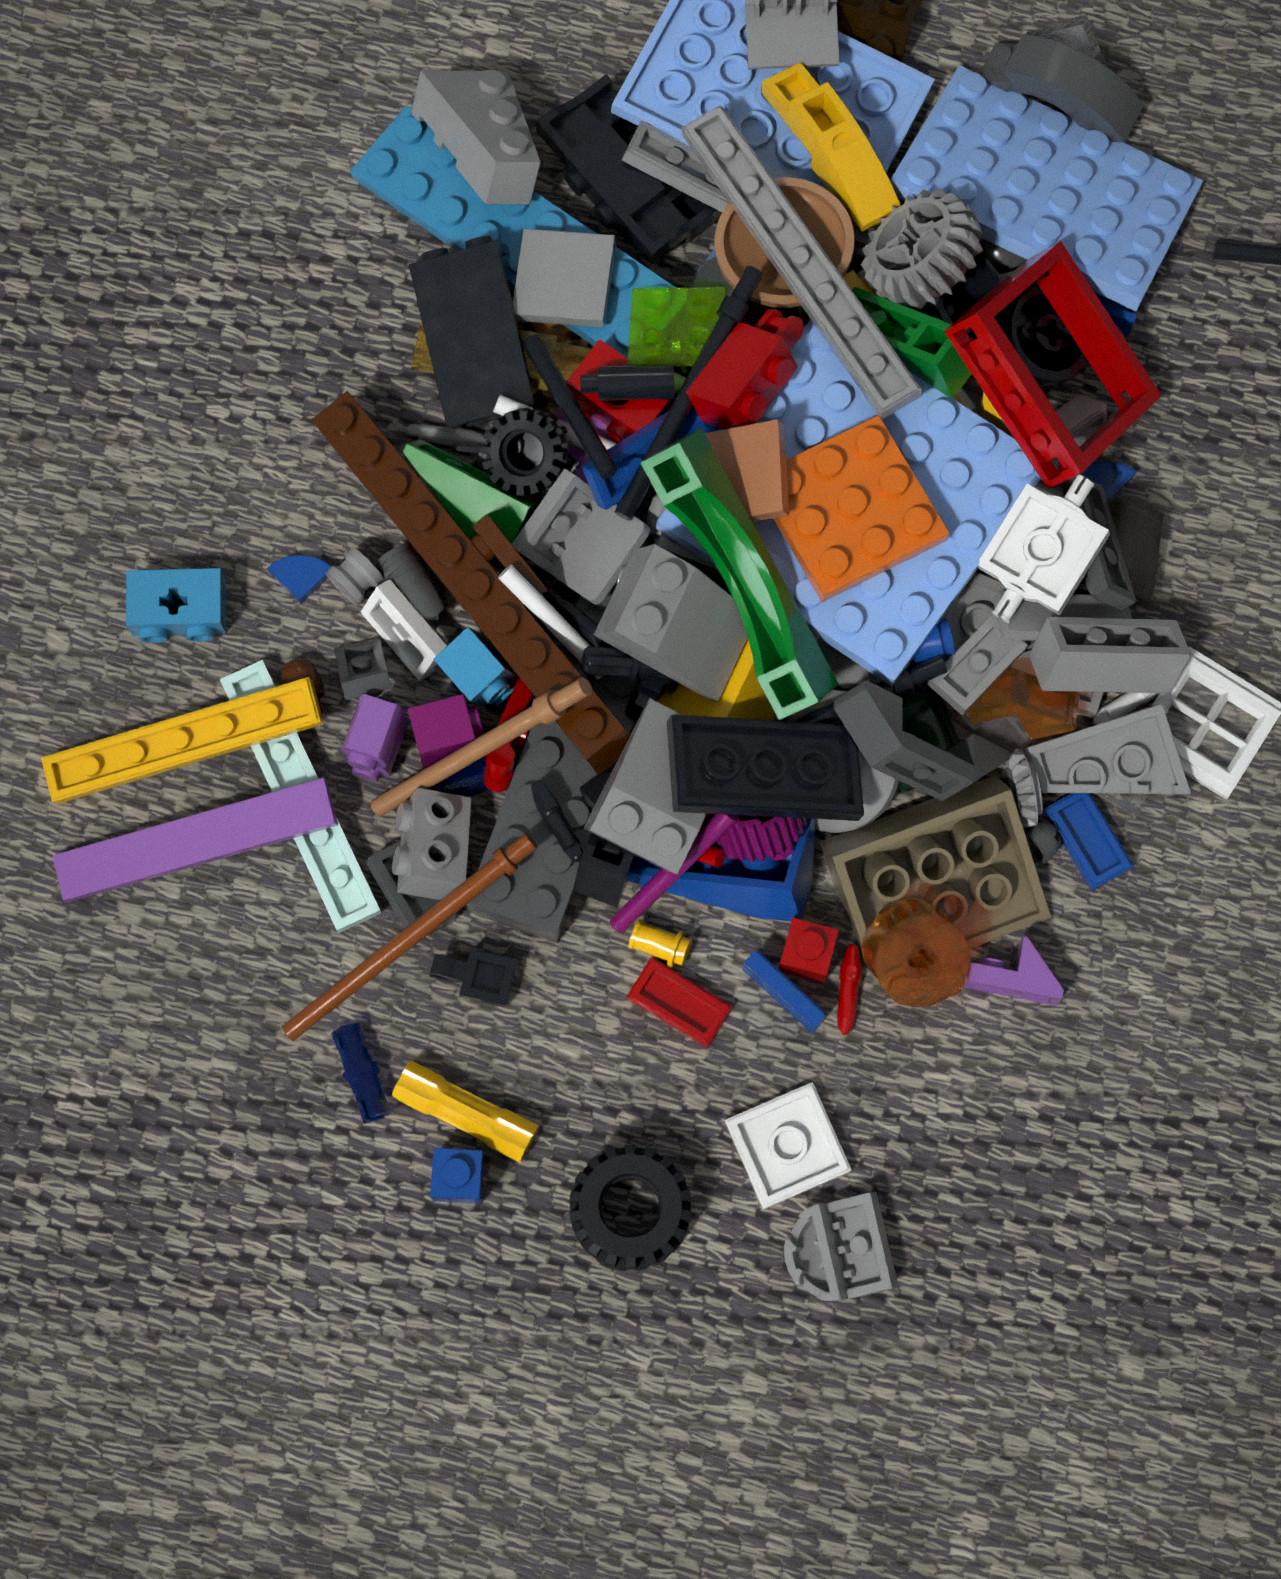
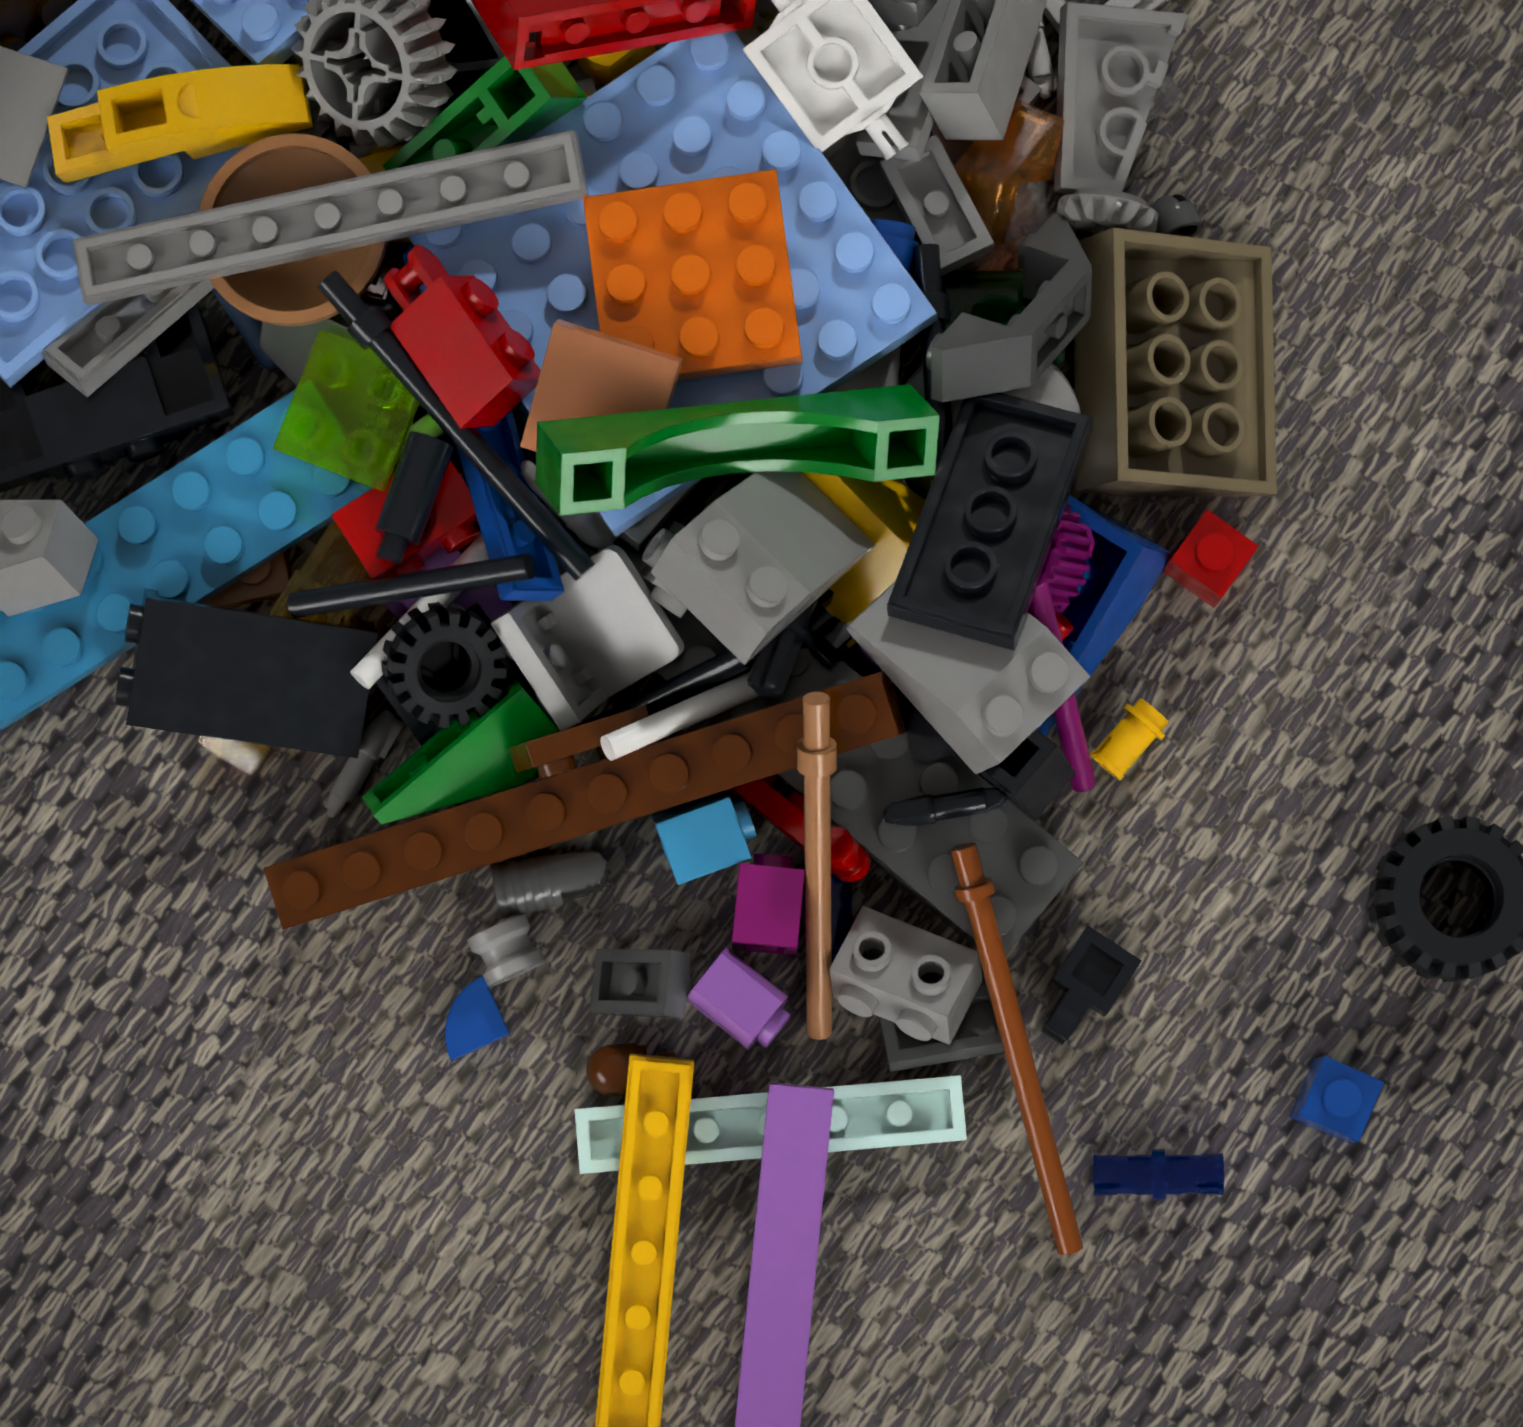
camera: 70 degrees left, 5 degrees up
(154, 593) = (427, 1218): dark azure brick -> none
(403, 629) = (603, 912): white tile -> none
(437, 1097) = (1255, 1061): yellow axle -> none
(564, 277) = (222, 530): light grey tile -> none
(679, 1002) = (1210, 744): red tile -> none
(784, 991) = (1250, 607): blue tile -> none
(787, 1145) = (1438, 678): white tile -> none
(849, 978) = (1260, 522): red piece -> none
(912, 975) = (1268, 426): clear orange brick -> none
(1028, 981) = (1341, 304): medium lavender slope -> none
(1088, 839) = (1193, 162): blue tile -> none

